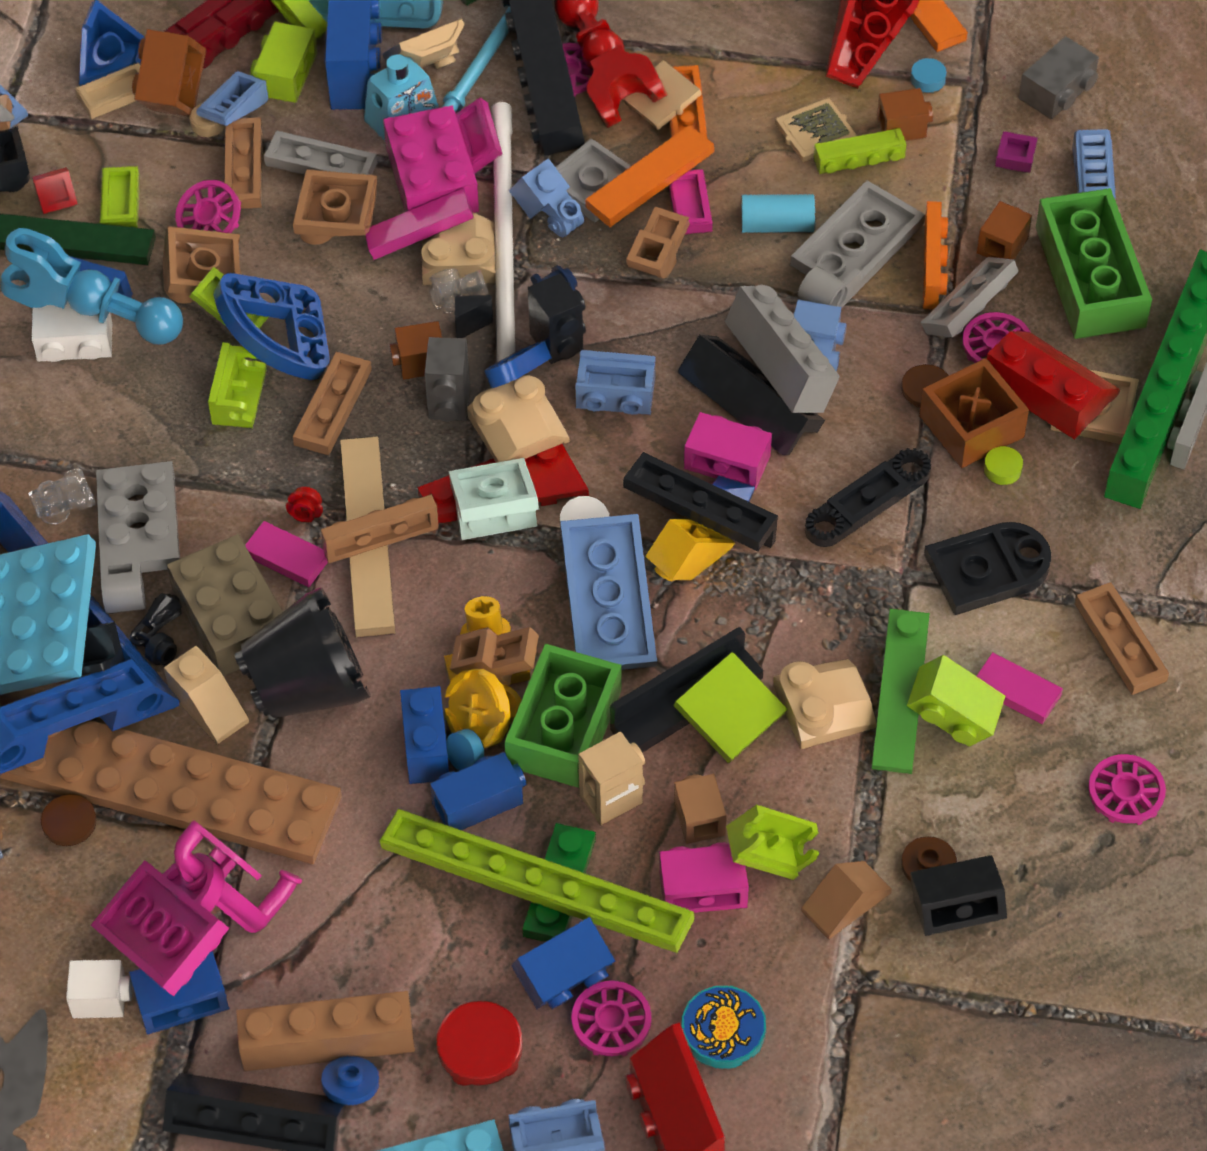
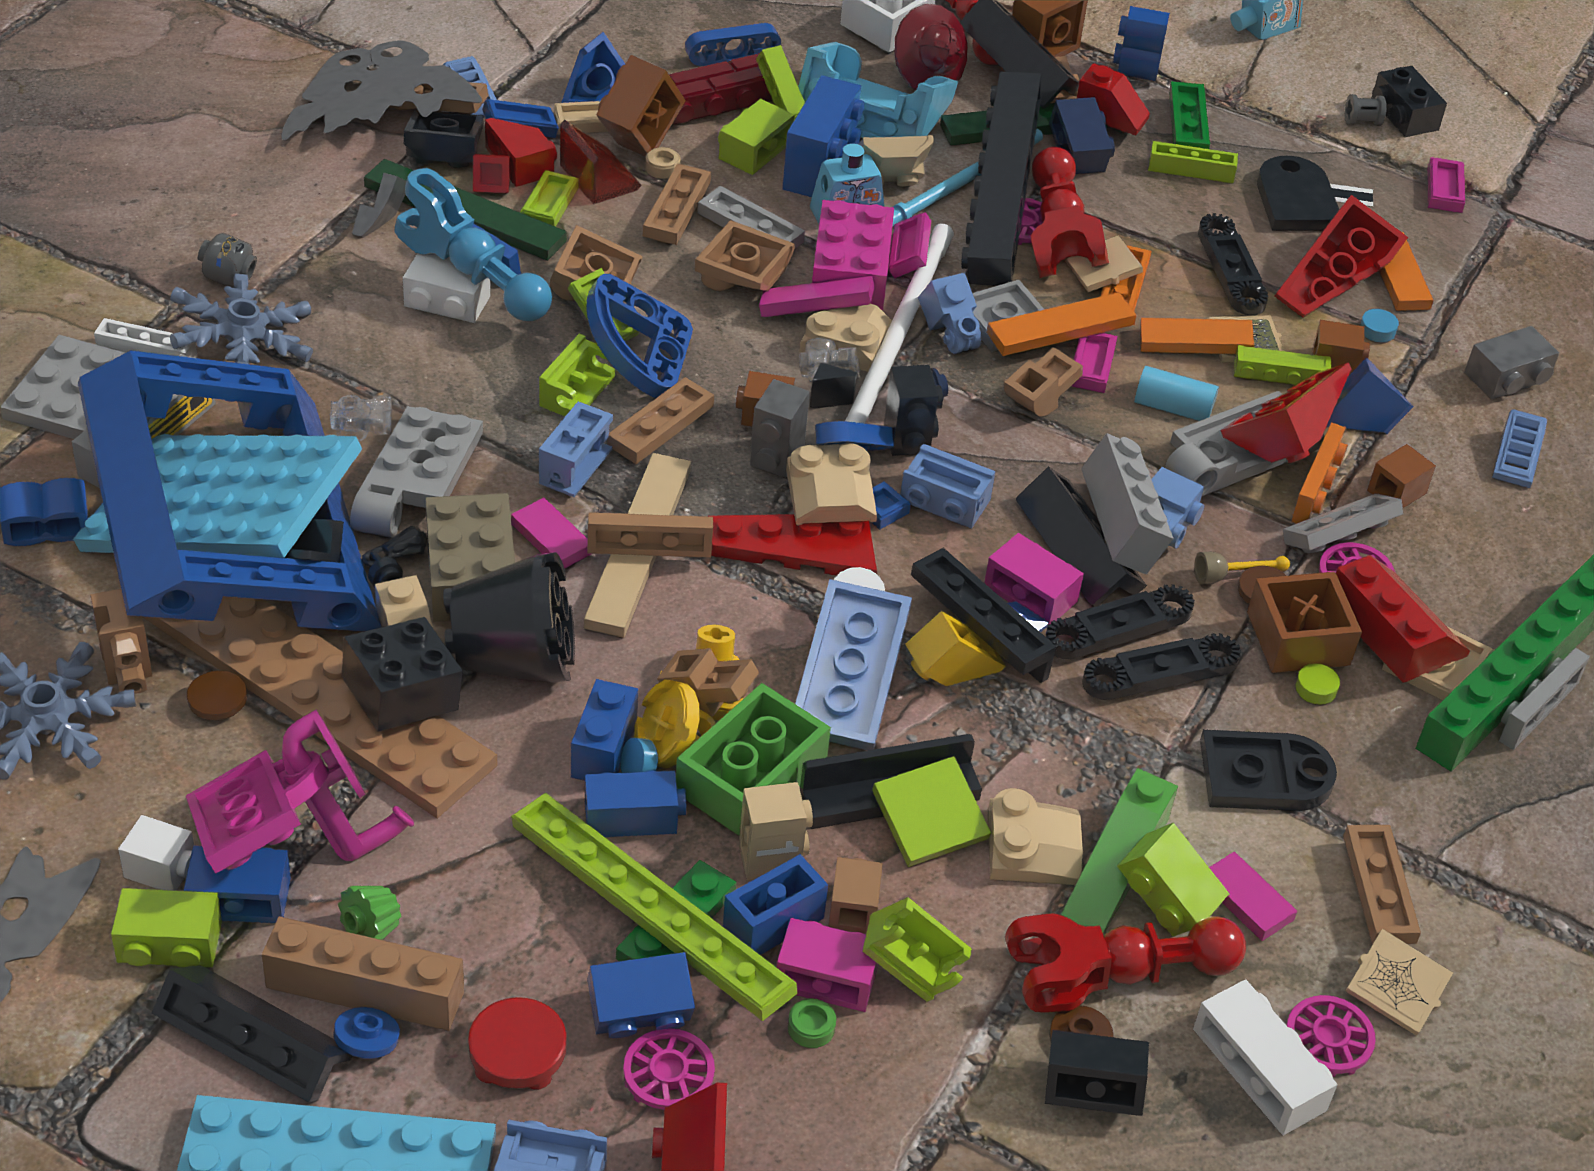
camera: 15 degrees right, 10 degrees down
(52, 117) = (524, 114): none -> blue tile
(69, 148) = (527, 147): none -> red slope
(139, 1052) = (166, 927): none -> lime brick
(147, 146) = (596, 166): none -> clear red slope
(208, 210) = (627, 229): dark pink wheel -> none
(229, 746) = (401, 673): none -> black brick
(239, 94) = (694, 149): medium blue slope -> none
(273, 463) = (575, 449): none -> medium blue hinge
(303, 975) = (369, 911): none -> bright green piece
(304, 504) = (594, 490): red plate -> none
(494, 498) = (775, 547): light aqua bracket -> none
(571, 416) = (889, 505): none -> blue tile
(635, 848) = (763, 908): none -> blue brick
(709, 934) = (811, 1023): none -> bright green tile
(724, 1026) = (785, 1119): tile -> none
(771, 144) = (1195, 335): none -> orange tile
(776, 54) = (1233, 264): none -> black plate
(816, 465) = (1120, 621): none -> black plate
(844, 896) = (973, 1034): medium nougat slope -> none
(875, 382) = (1213, 567): none -> dark tan hinge
(893, 210) = (1291, 421): none -> red wedge
(912, 795) = (1083, 959): none -> red piece
(945, 163) = (1369, 401): none -> blue slope
(1016, 152) = (1442, 413): magenta plate -> none
(1083, 829) = (1265, 1056): none -> white brick
(1093, 263) = (1484, 529): bright green brick -> none
(1166, 722) = (1399, 982): none -> tan piece

